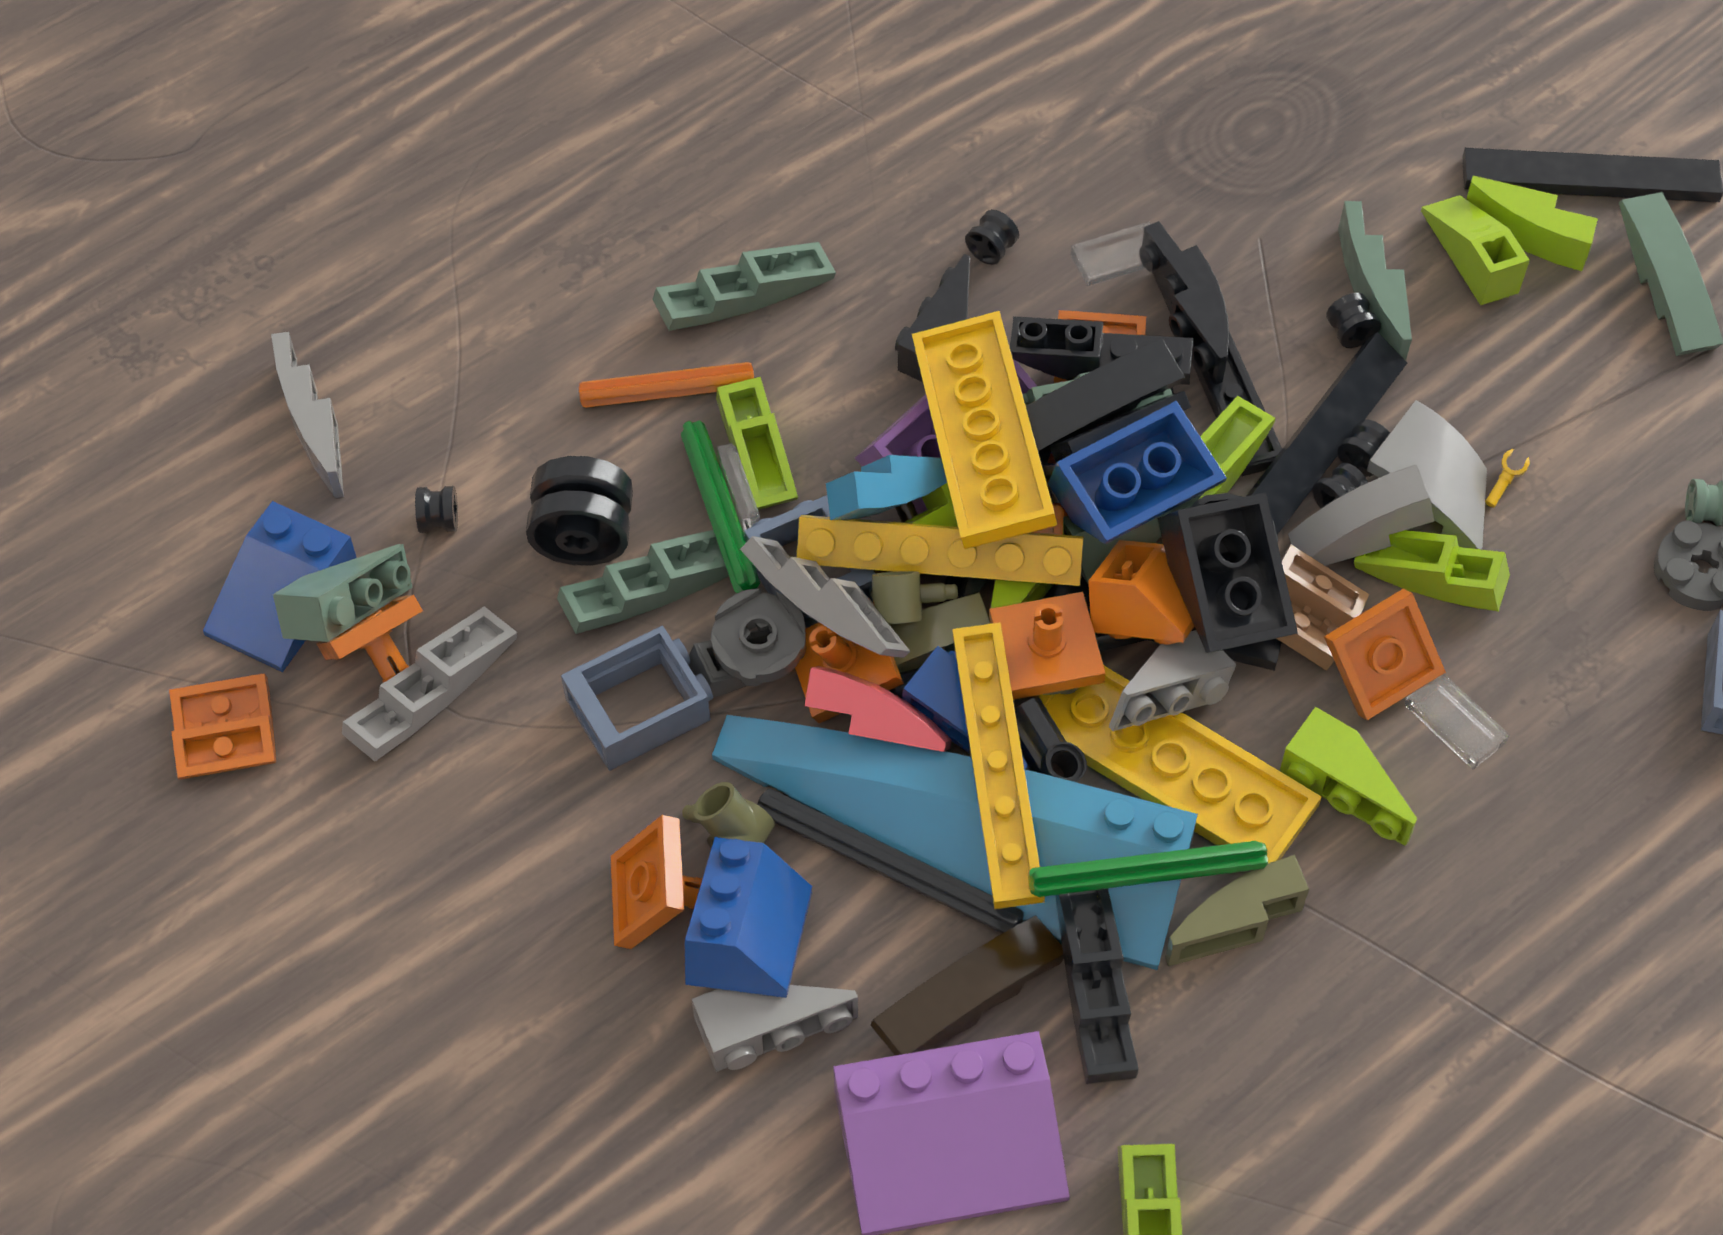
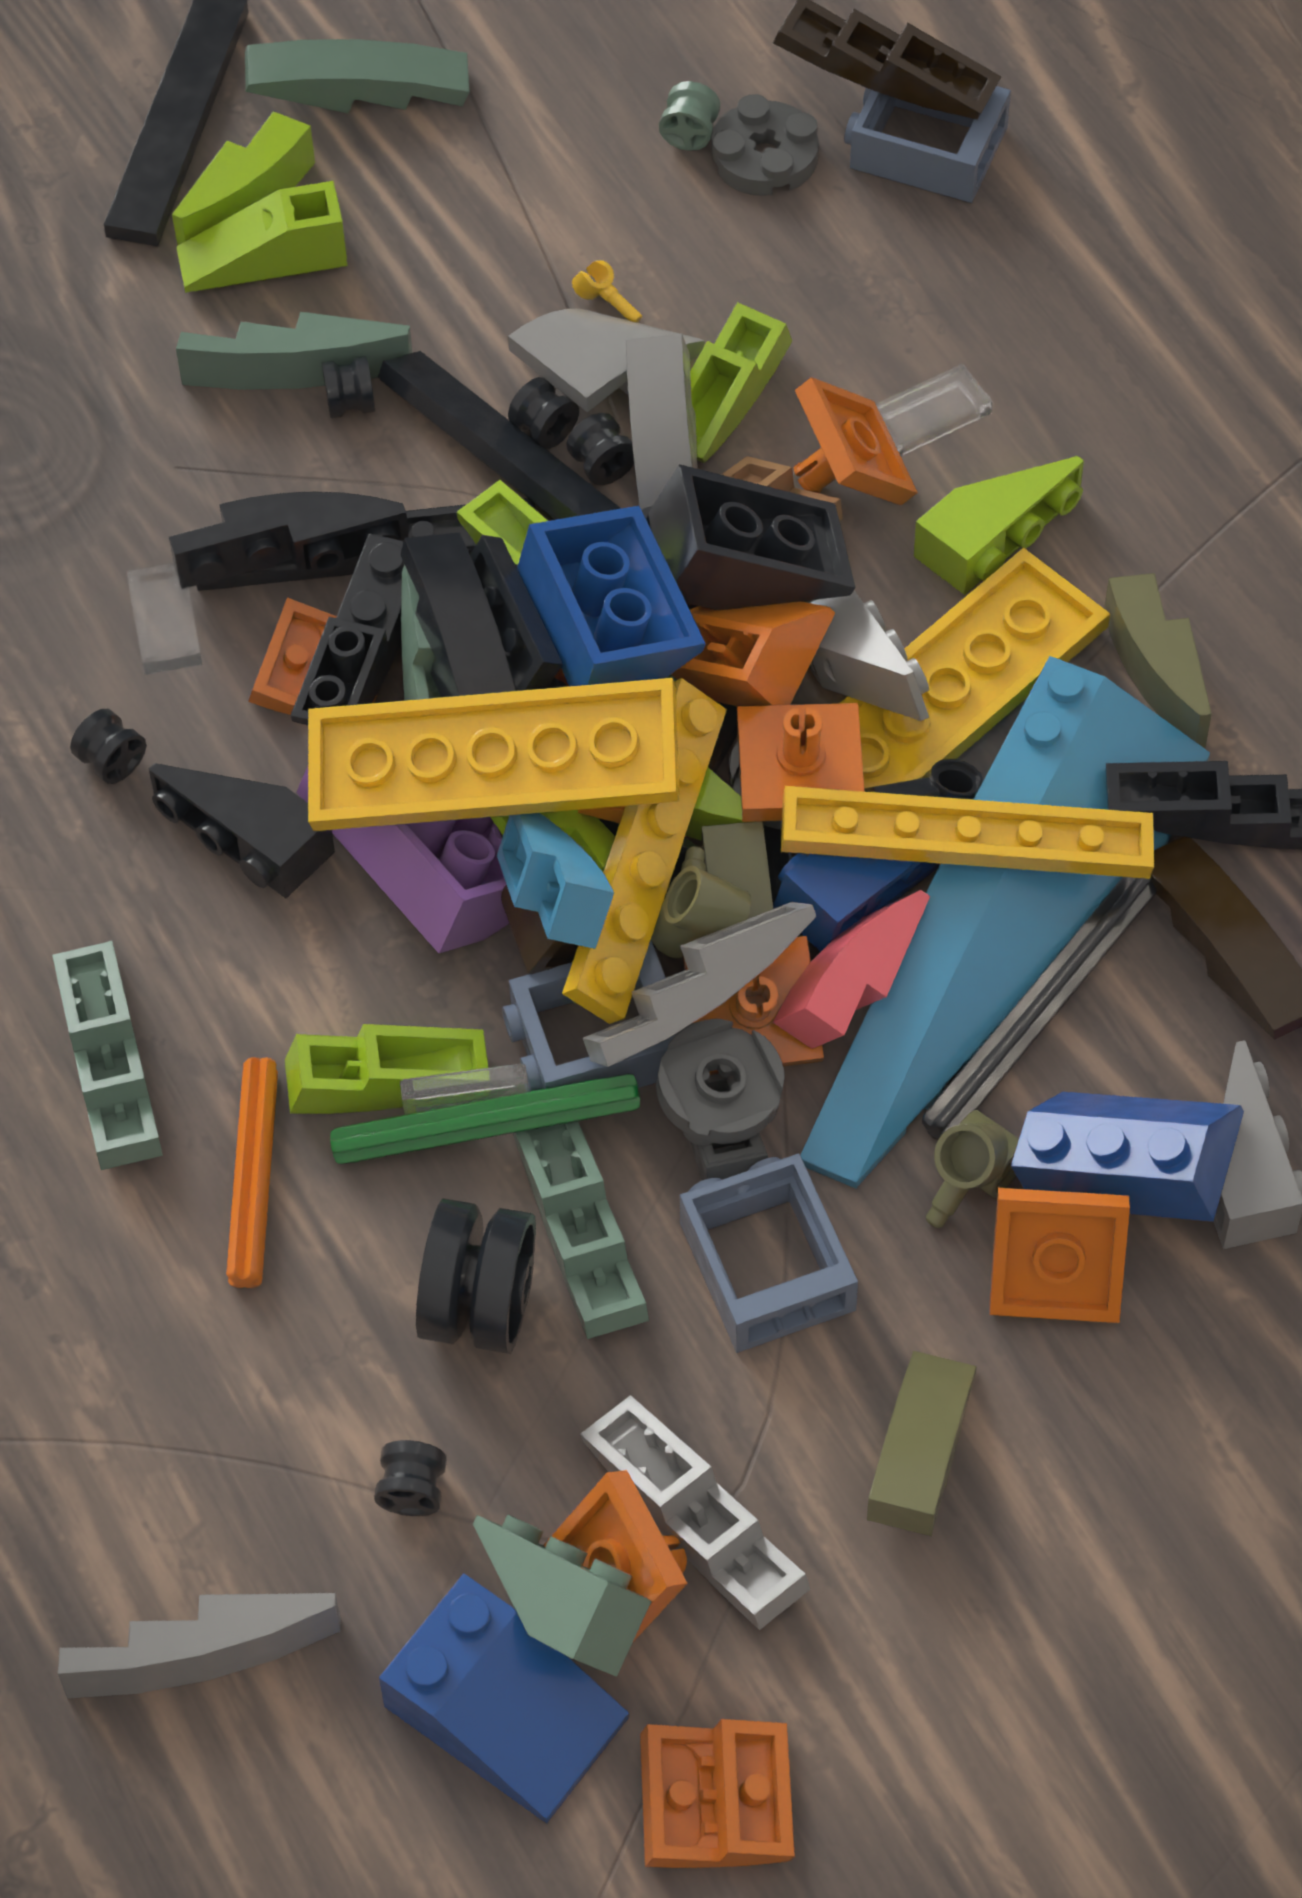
camera: 80 degrees left, 0 degrees up
(494, 816) = (920, 1443): none -> olive slope
(1147, 868) = (1127, 710): green axle -> none

